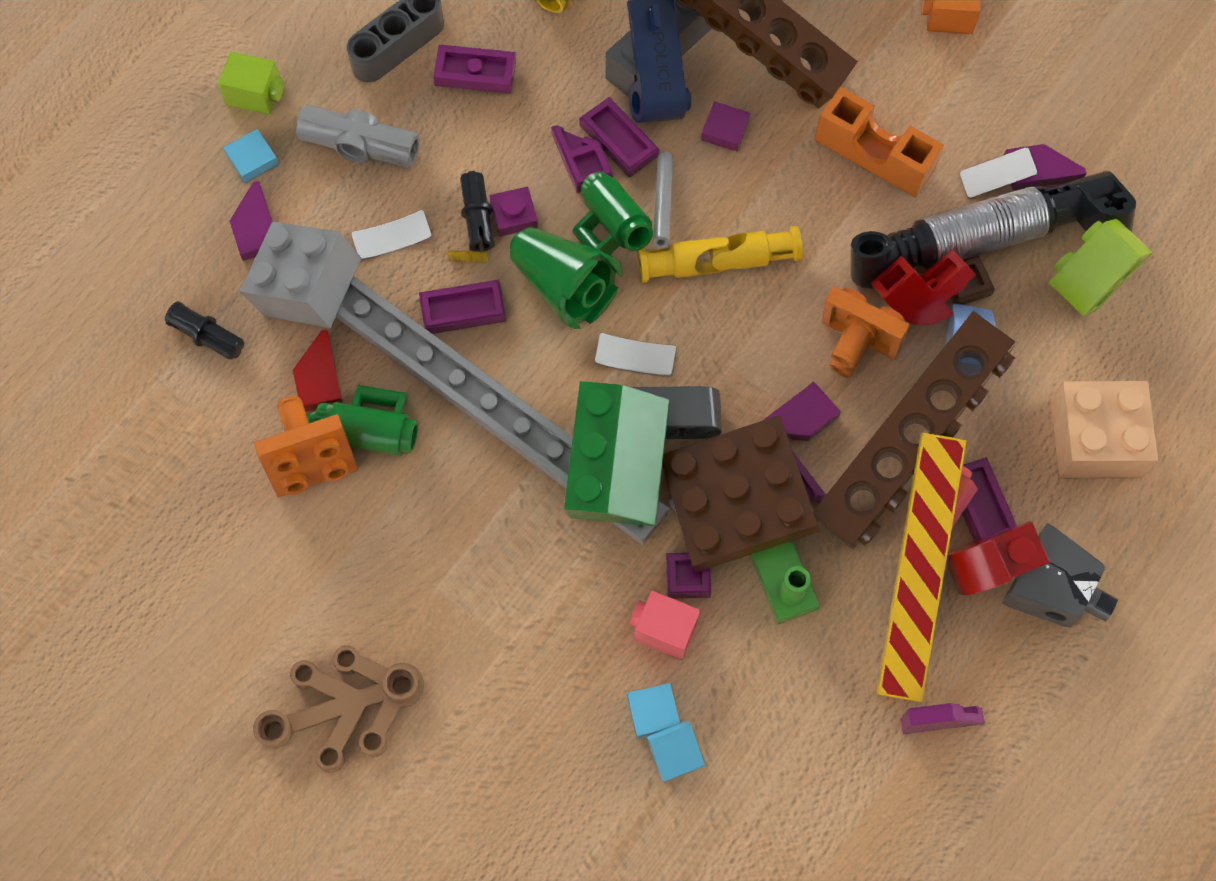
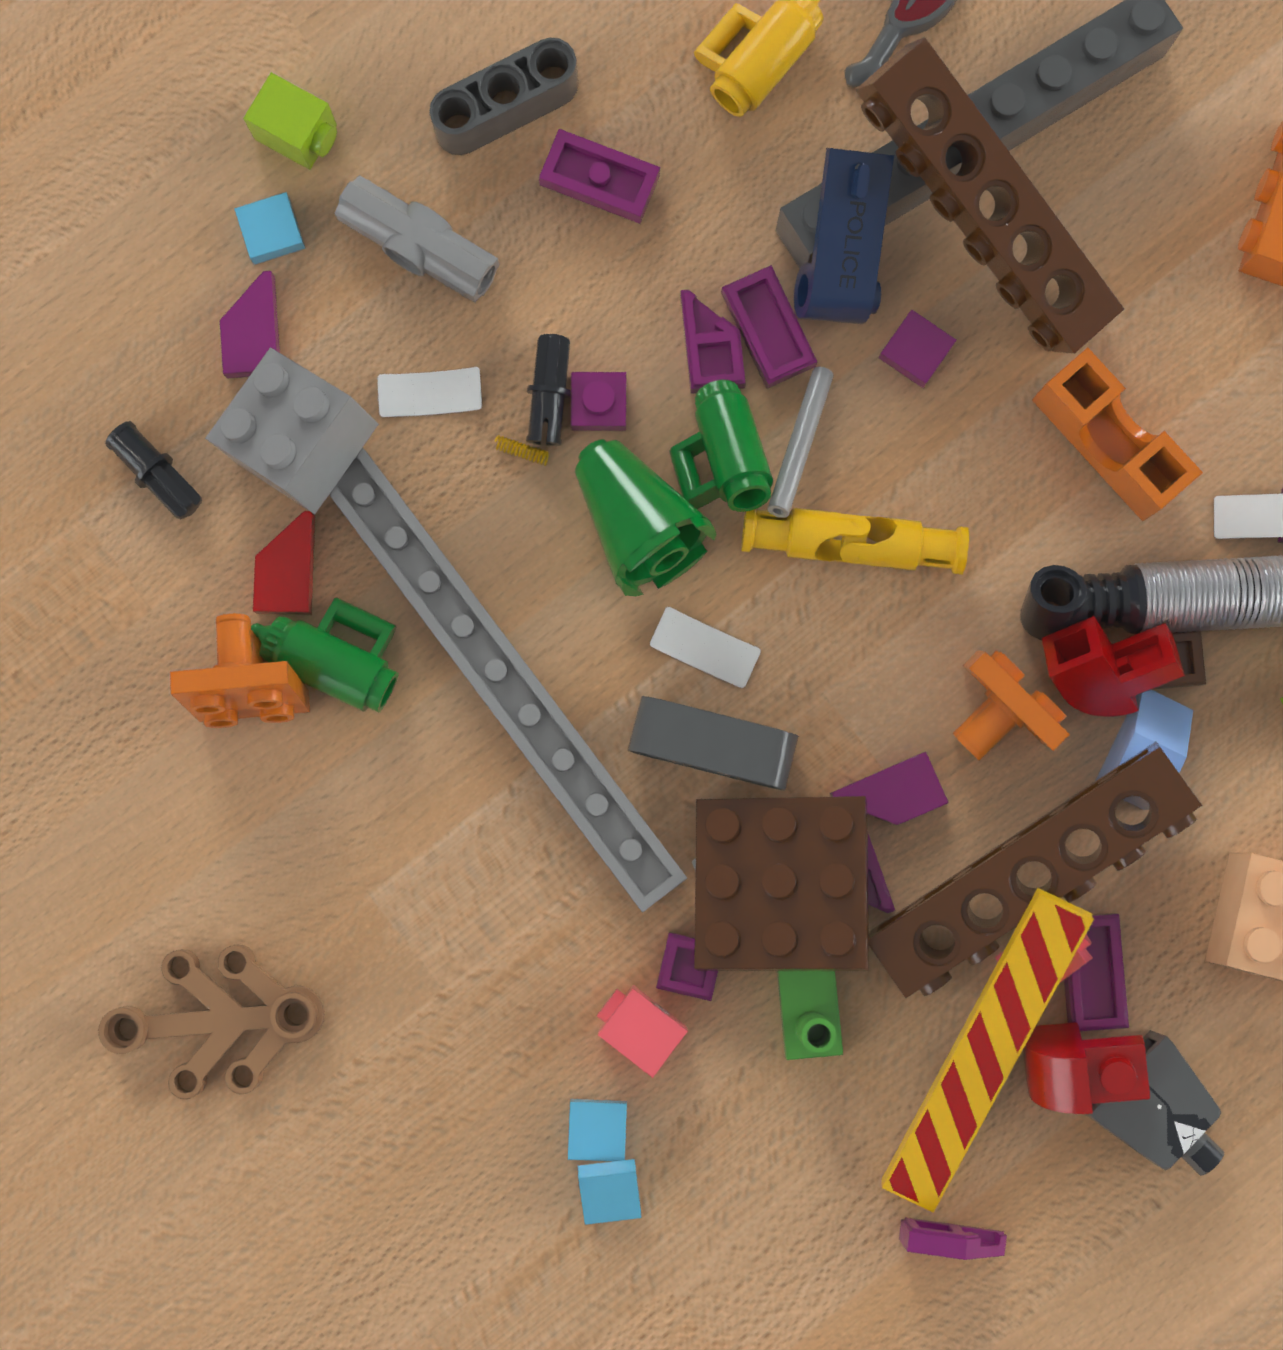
camera: 15 degrees right, 15 degrees up
(462, 307) = (496, 521): magenta tile -> none
(616, 454) = (636, 802): green slope -> none

